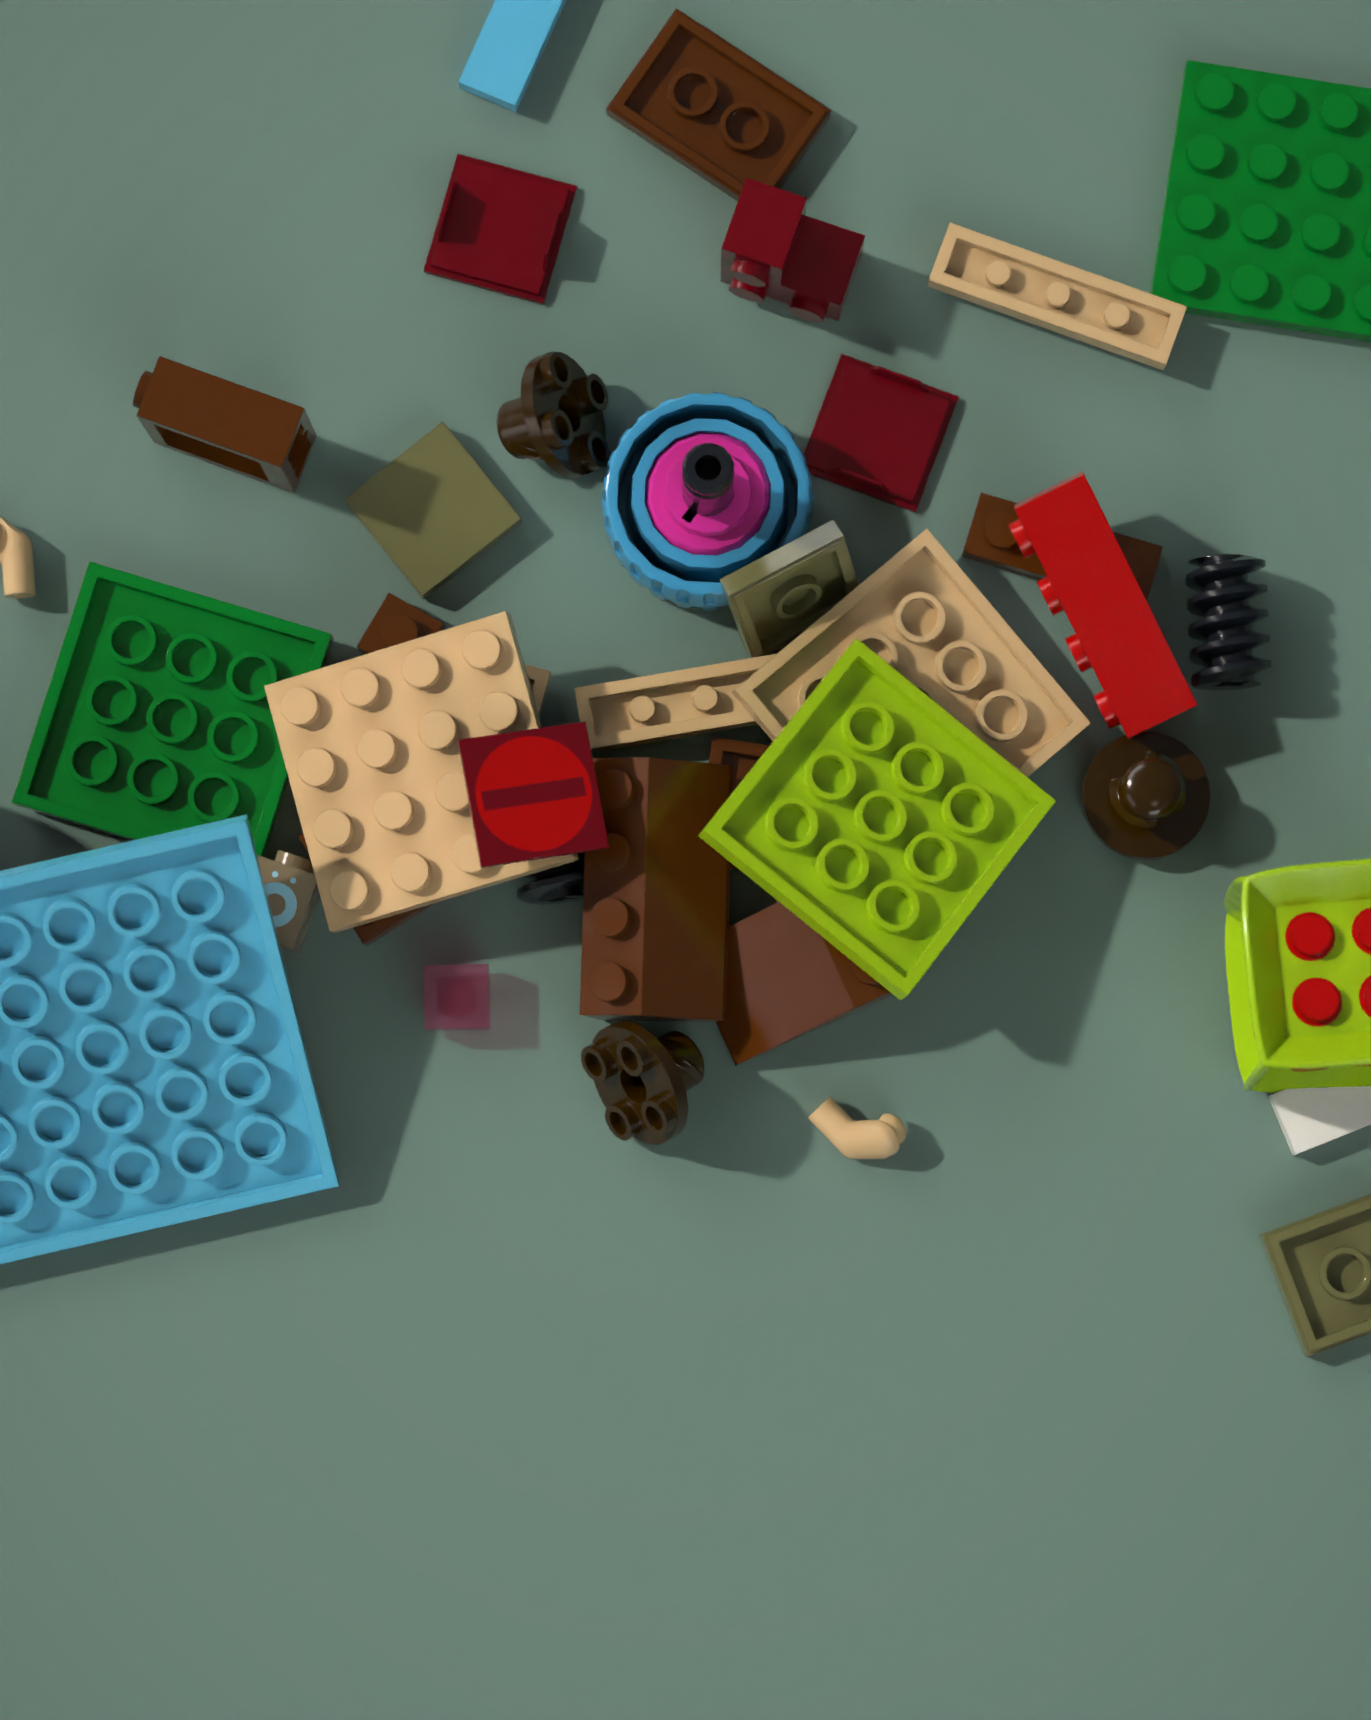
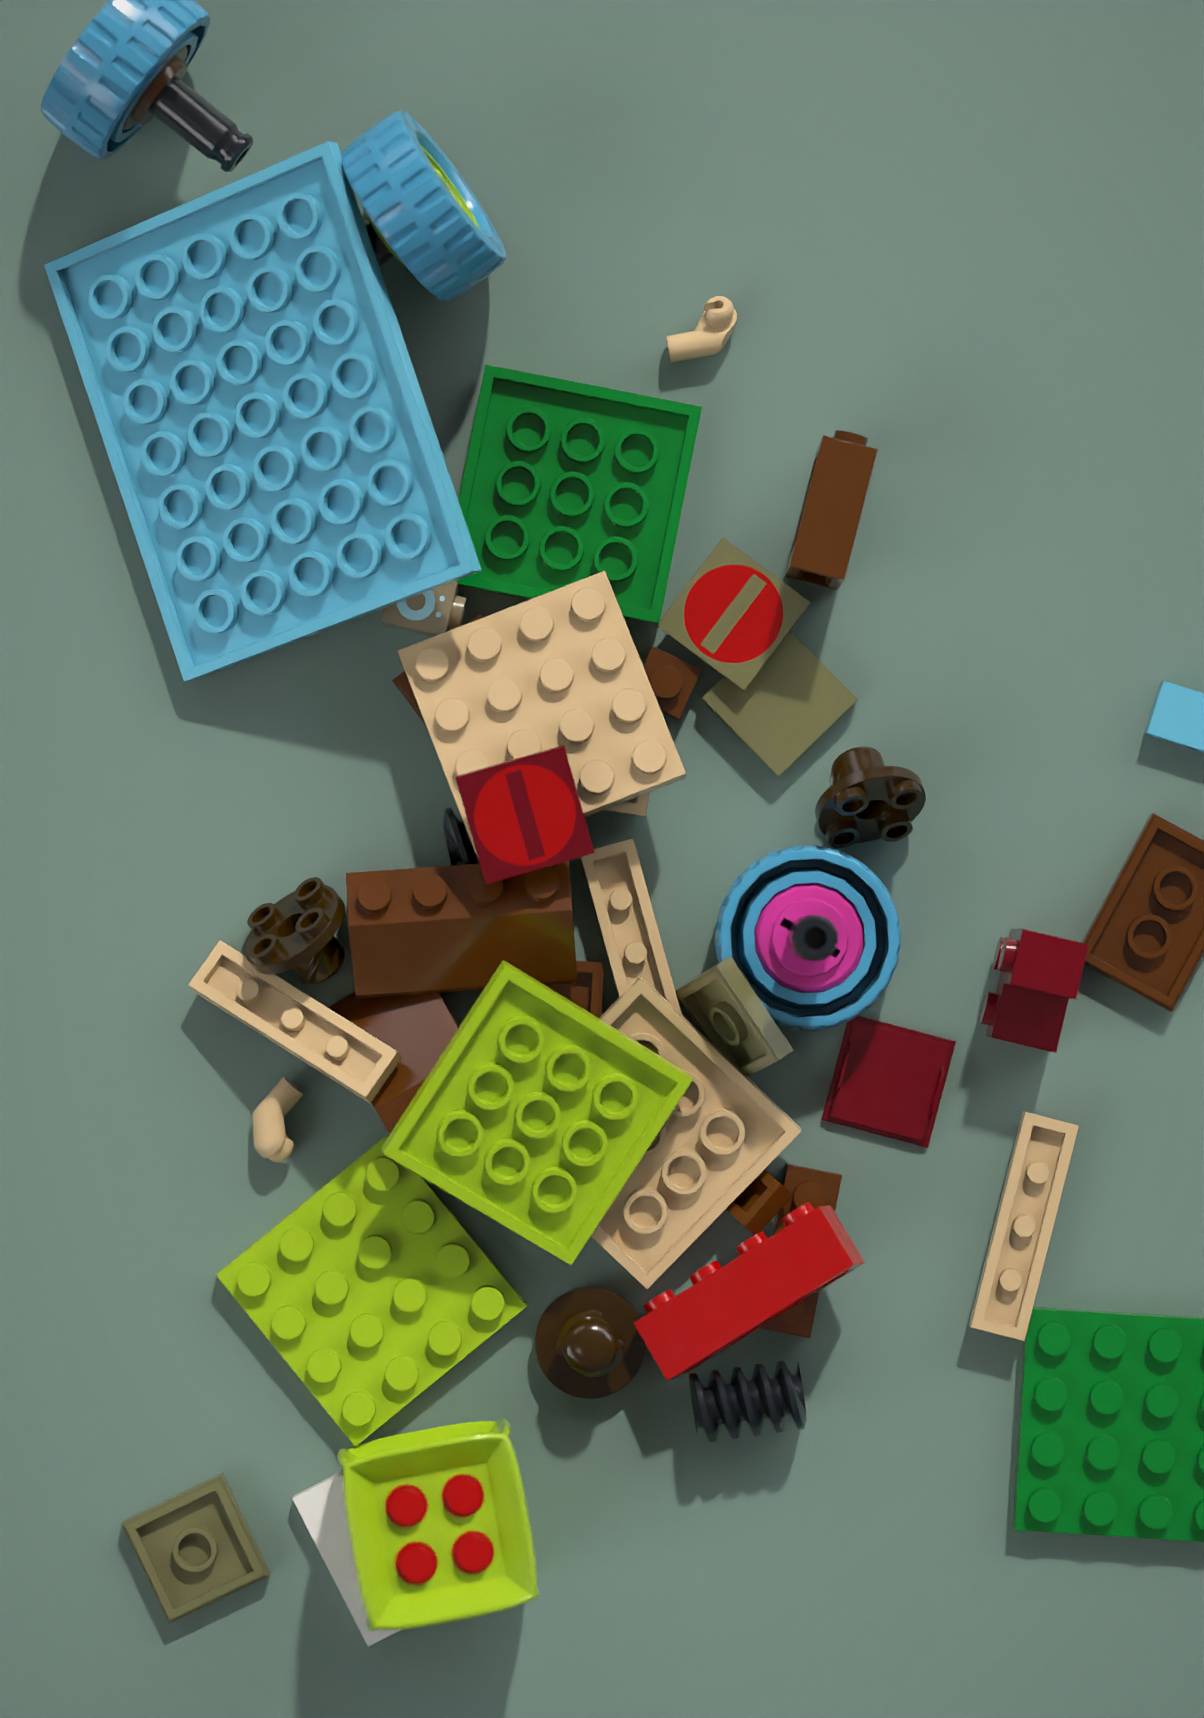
camera: 85 degrees right, 5 degrees up
(330, 549) = (733, 614): none -> piece
(457, 997) = (355, 765): clear pink plate -> none
(500, 229) = (1037, 731): dark red piece -> none
(745, 1092) = (295, 1022): none -> tan plate
(1004, 585) = (759, 1202): none -> reddish brown plate
(1063, 1040) = (371, 1291): none -> lime plate

